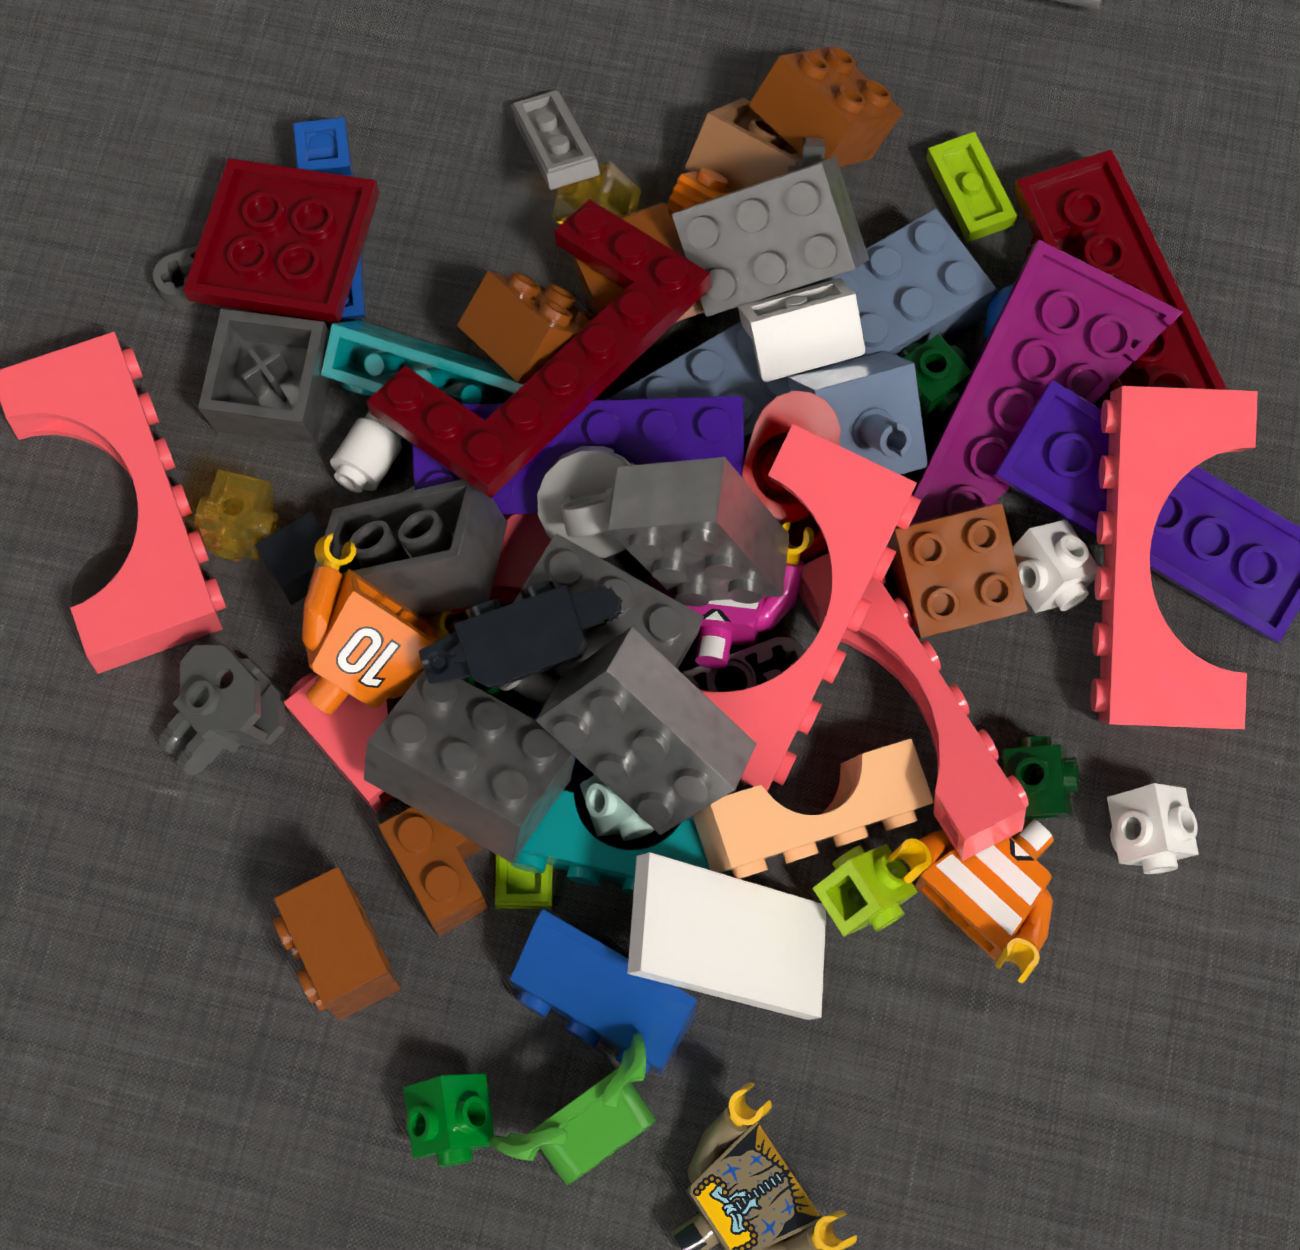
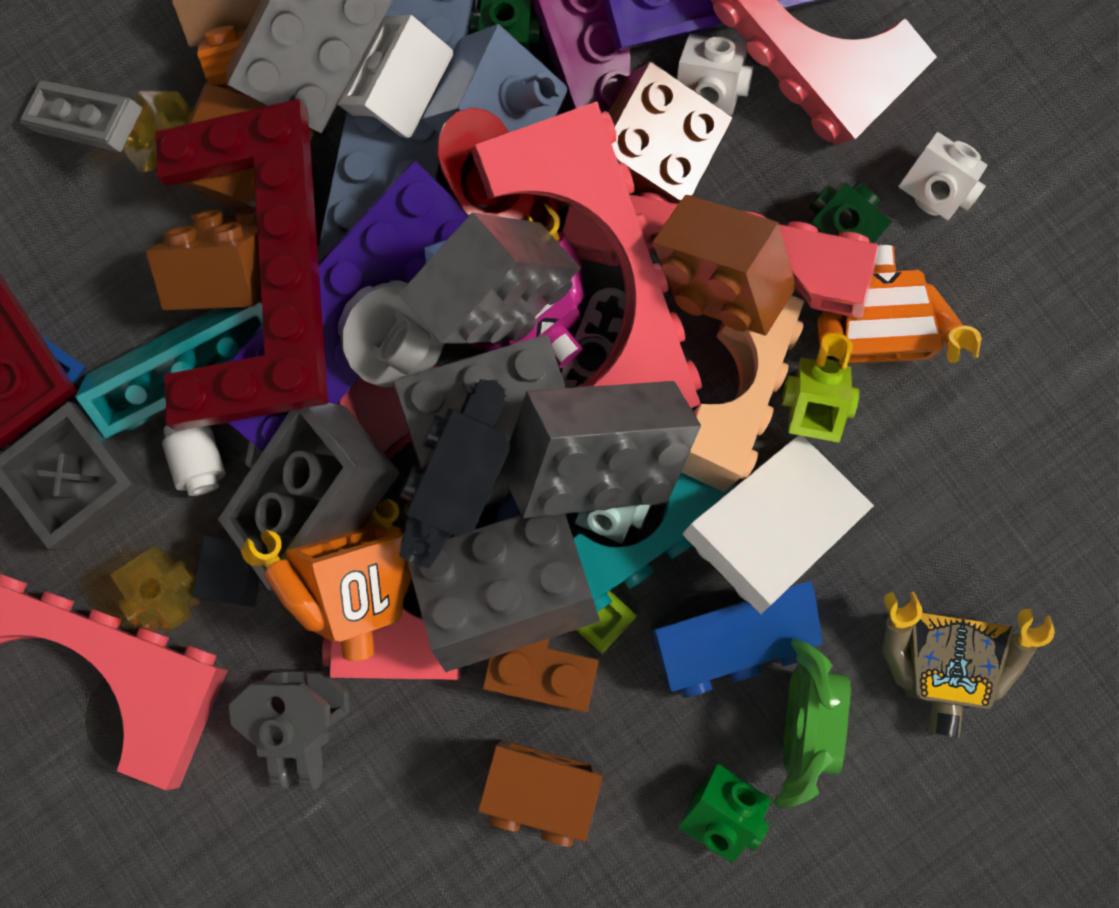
camera: 45 degrees left, 10 degrees up
(890, 703) = (725, 264): none -> dark orange brick

